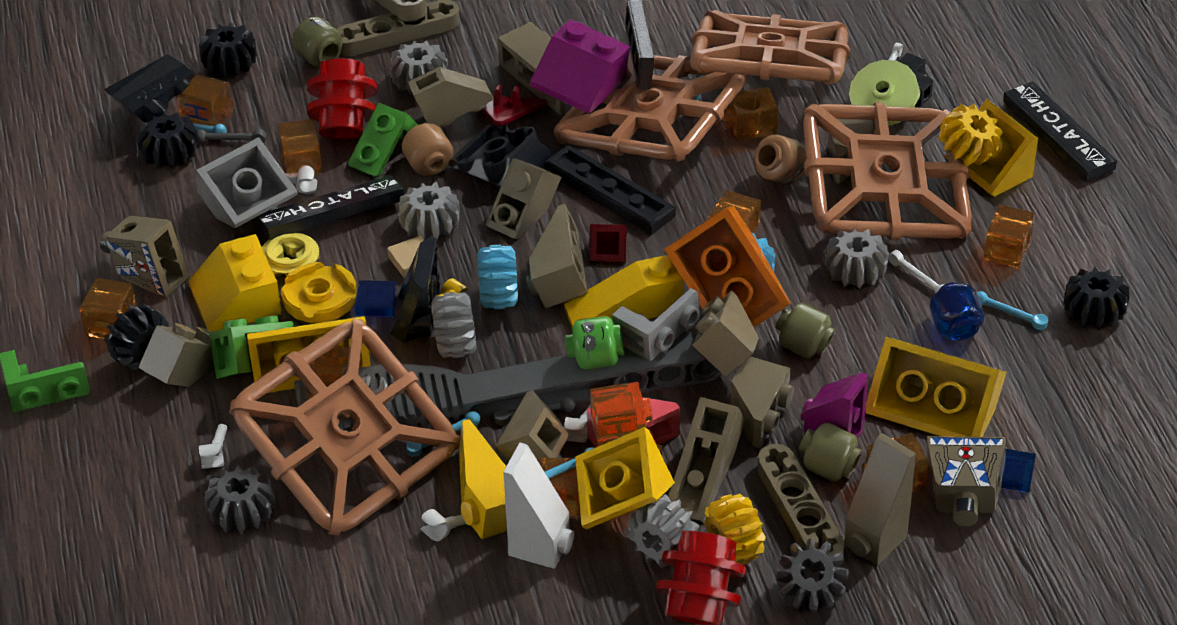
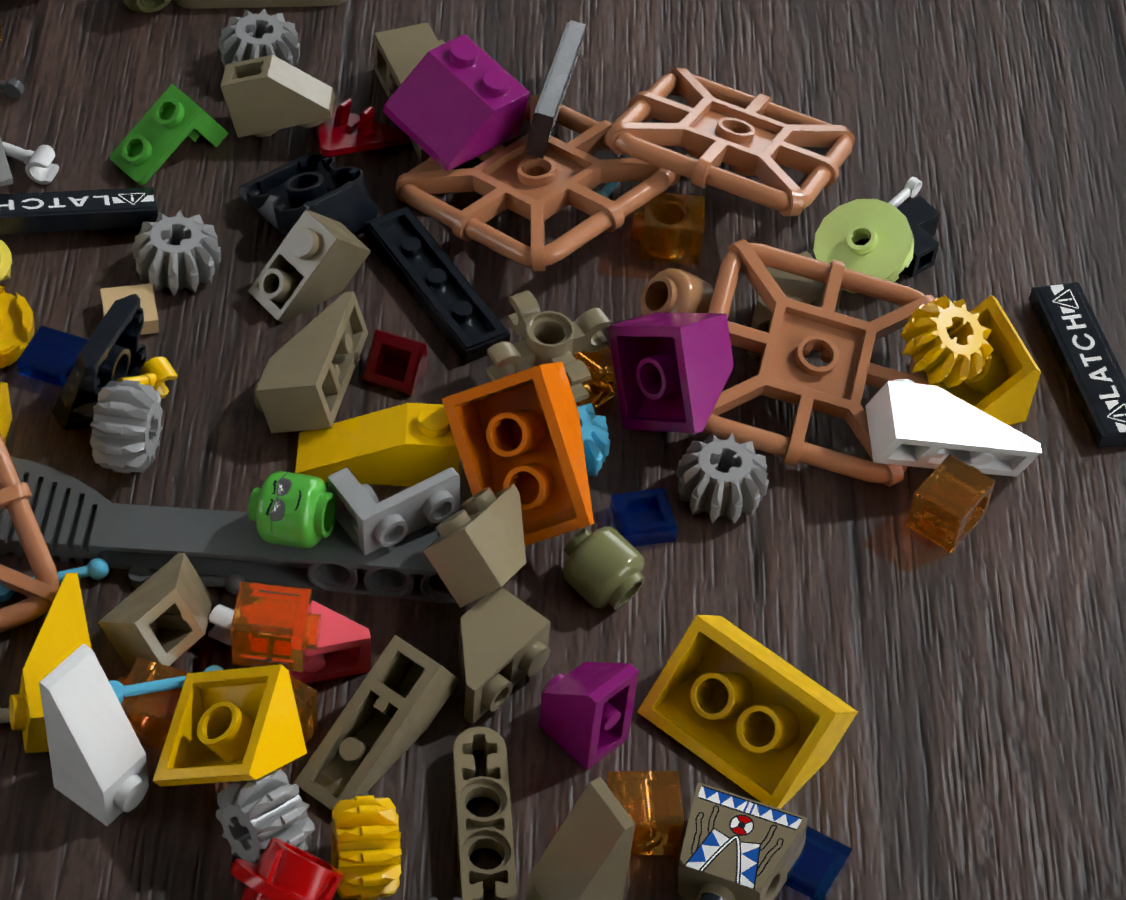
camera: 10 degrees right, 5 degrees up
(300, 145) = (53, 116): clear orange brick -> none
(341, 99) = (129, 66): red piece -> none
(425, 148) = (216, 164): medium nougat head -> none
(497, 277) = (216, 372): medium azure gear -> none
(712, 197) = (548, 339): none -> dark tan pin
(799, 197) = (670, 369): none -> magenta slope
(815, 293) = (644, 517): none -> clear blue tile
(830, 452) = (556, 762): olive head -> none
(896, 258) = (824, 558): white hinge -> none
(957, 311) = (828, 597): clear blue head -> none
(977, 189) = (925, 424): none -> white slope
(1038, 321) = (944, 641): medium azure hinge -> none
(1096, 298) = (1036, 632): black gear -> none

